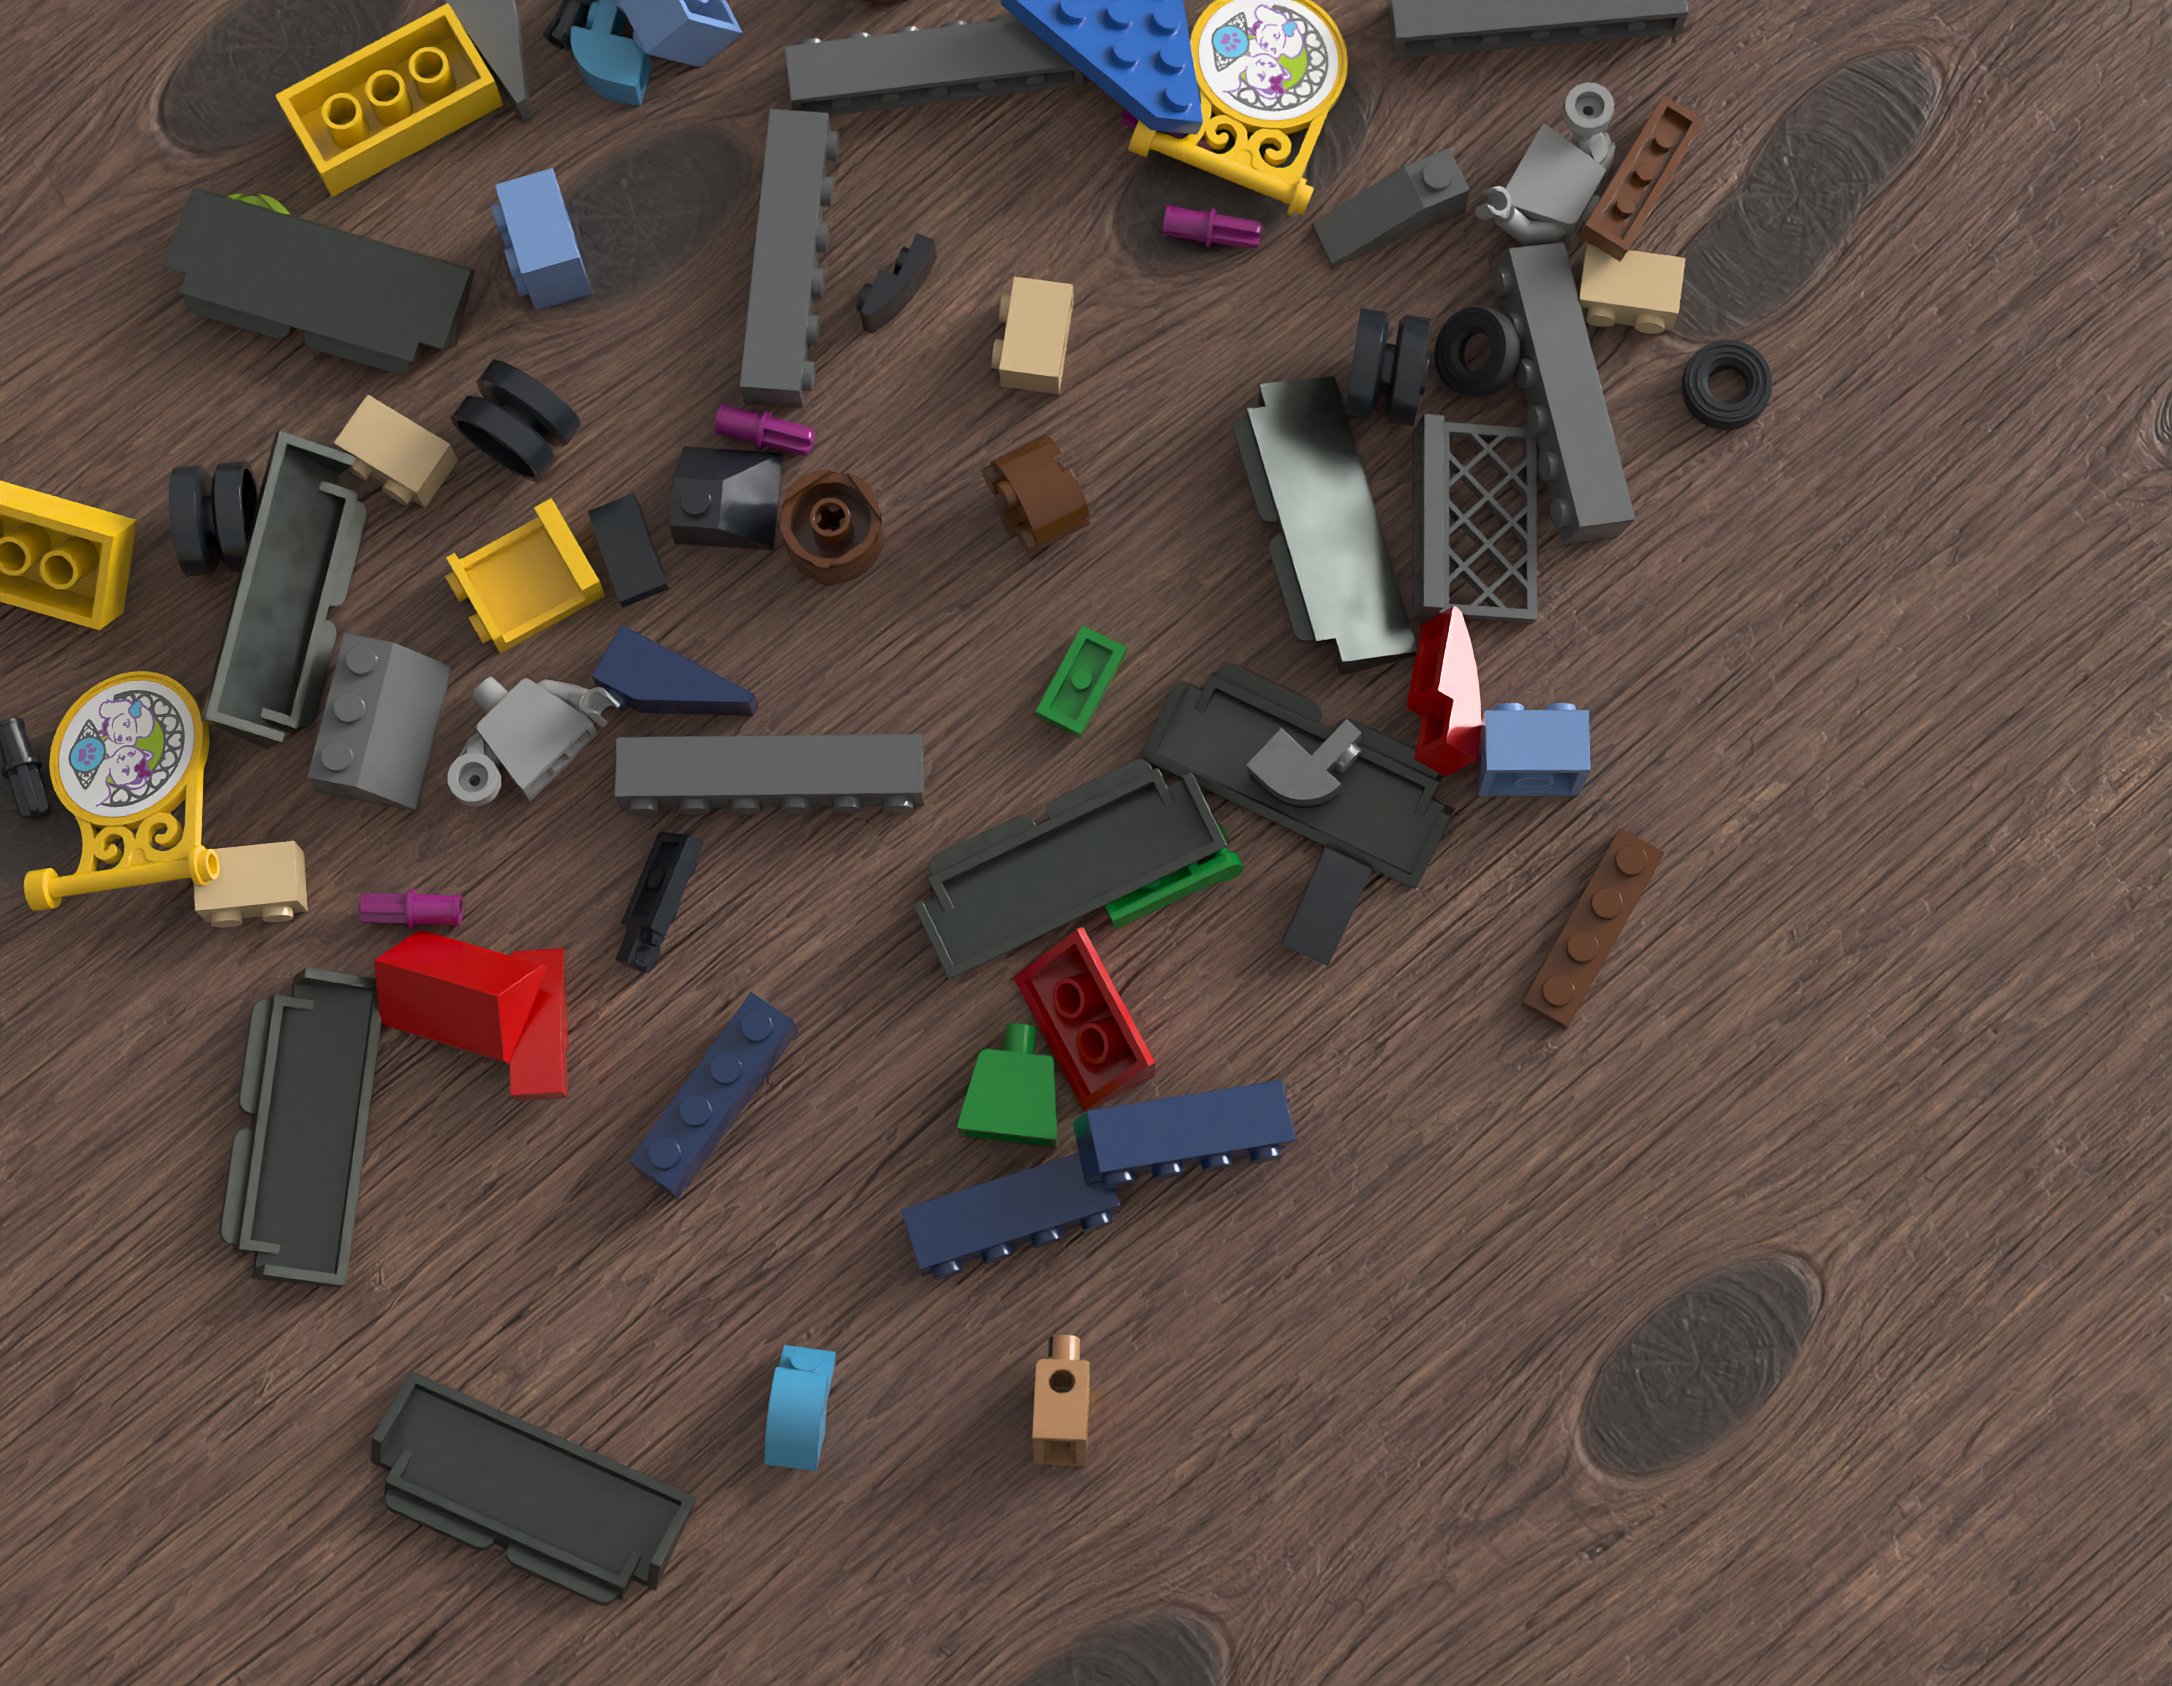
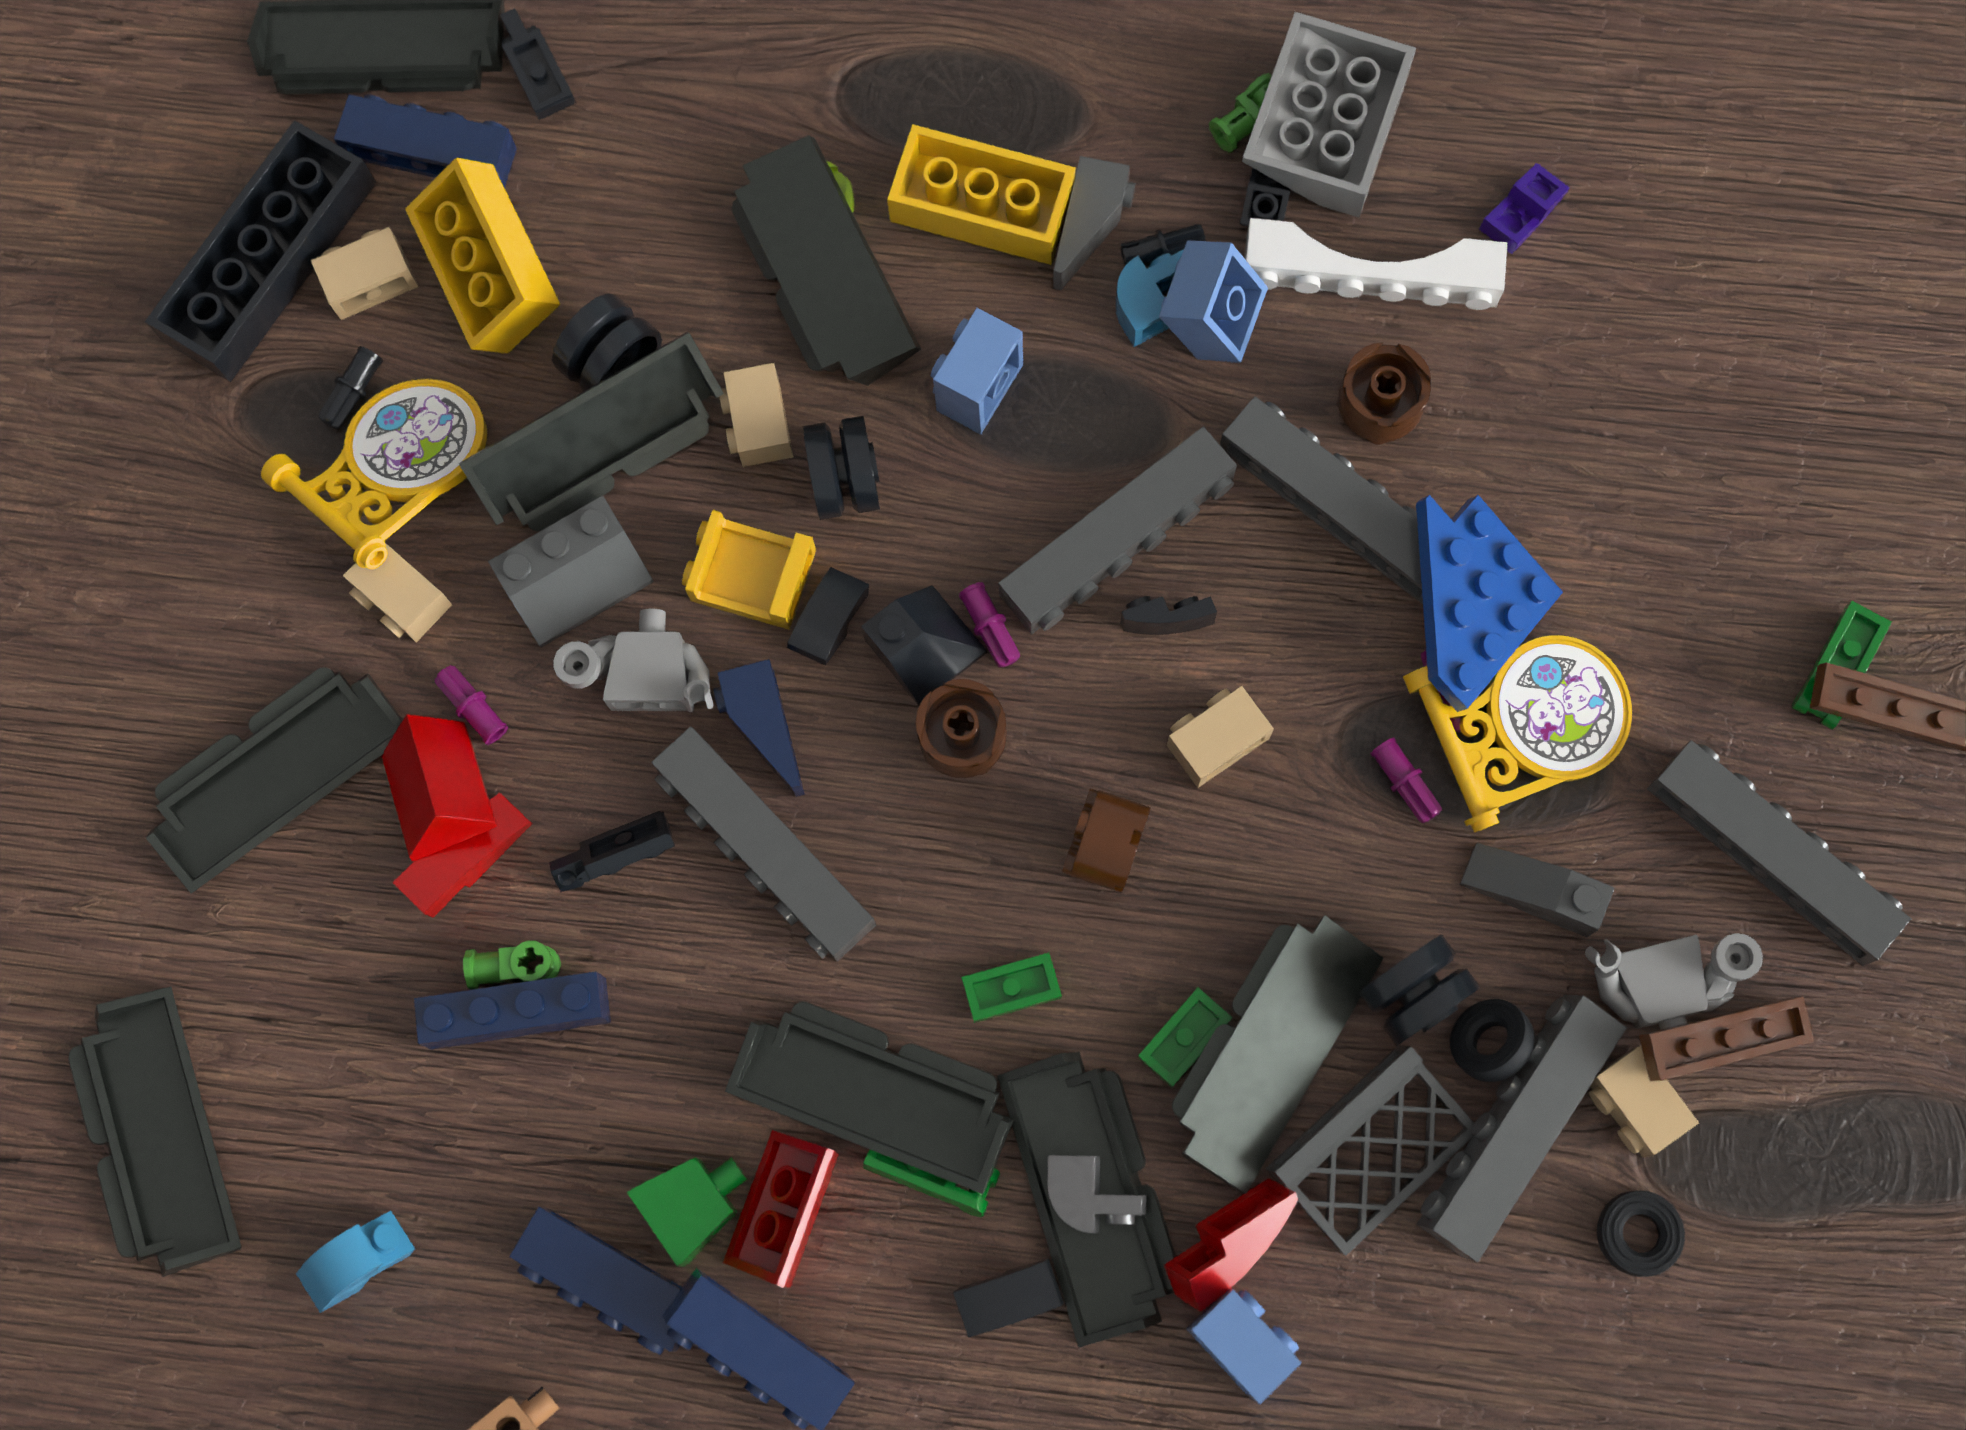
camera: 50 degrees right, 0 degrees up
(670, 1066) = (510, 964): none -> bright green connector
(1250, 584) = (1183, 1037): none -> green plate

